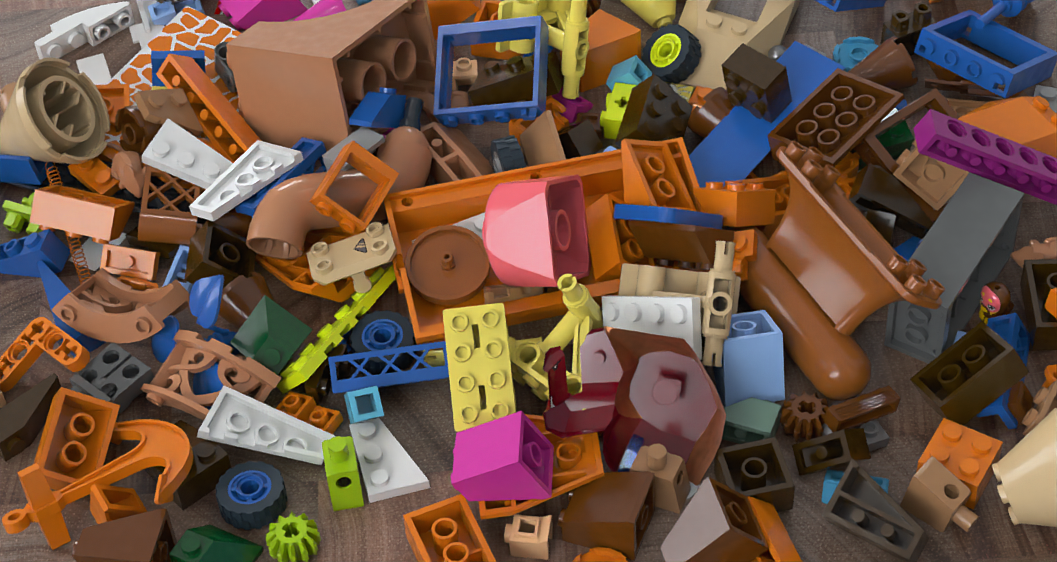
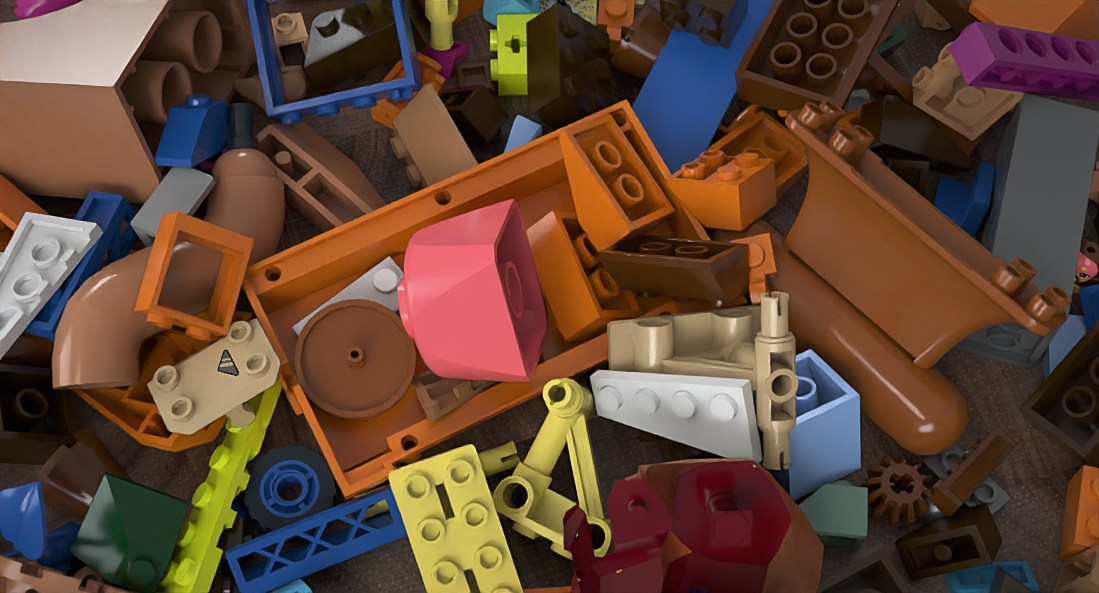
camera: 20 degrees left, 15 degrees up
(506, 154) = (390, 168): black wheel -> none
(667, 215) = (648, 244): blue beam -> none

